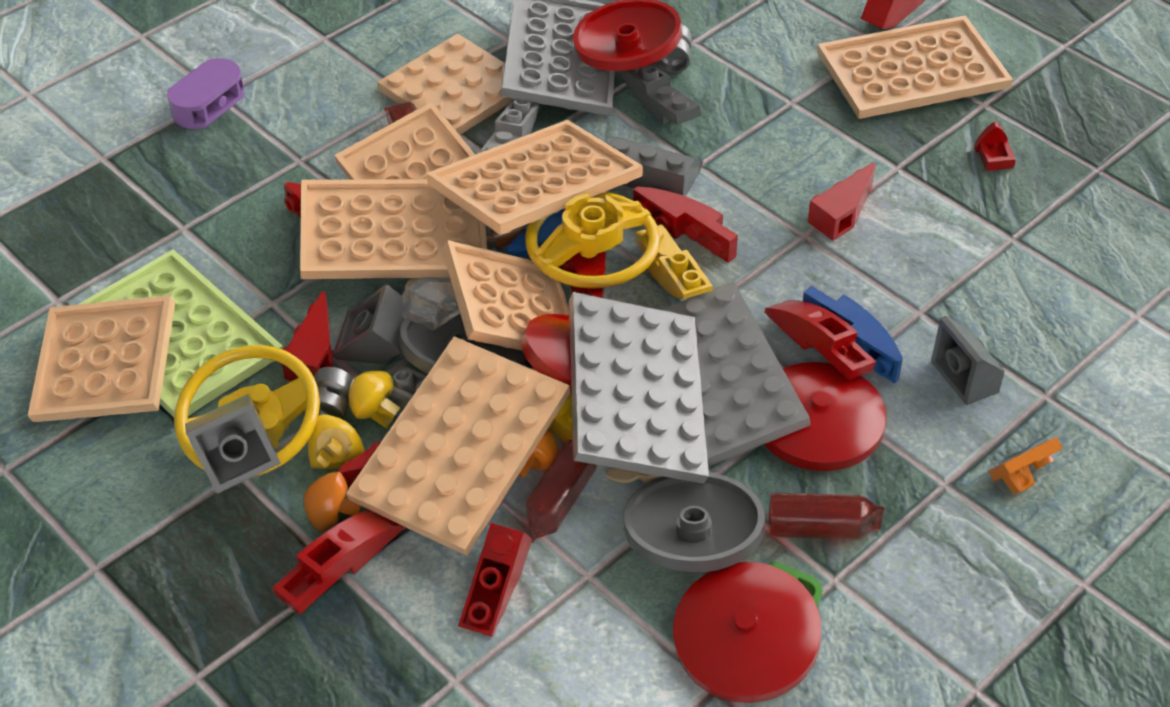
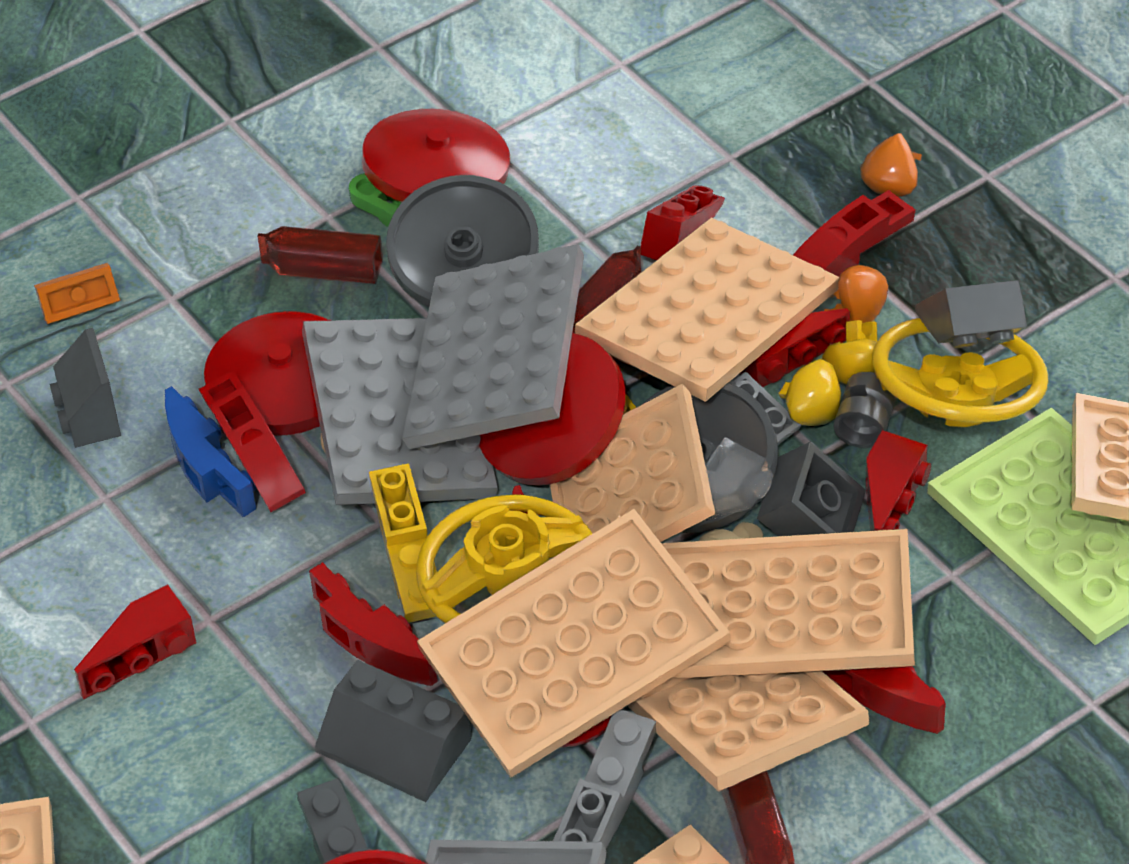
camera: 170 degrees left, 0 degrees up
(293, 640) = (891, 167): none -> orange piece

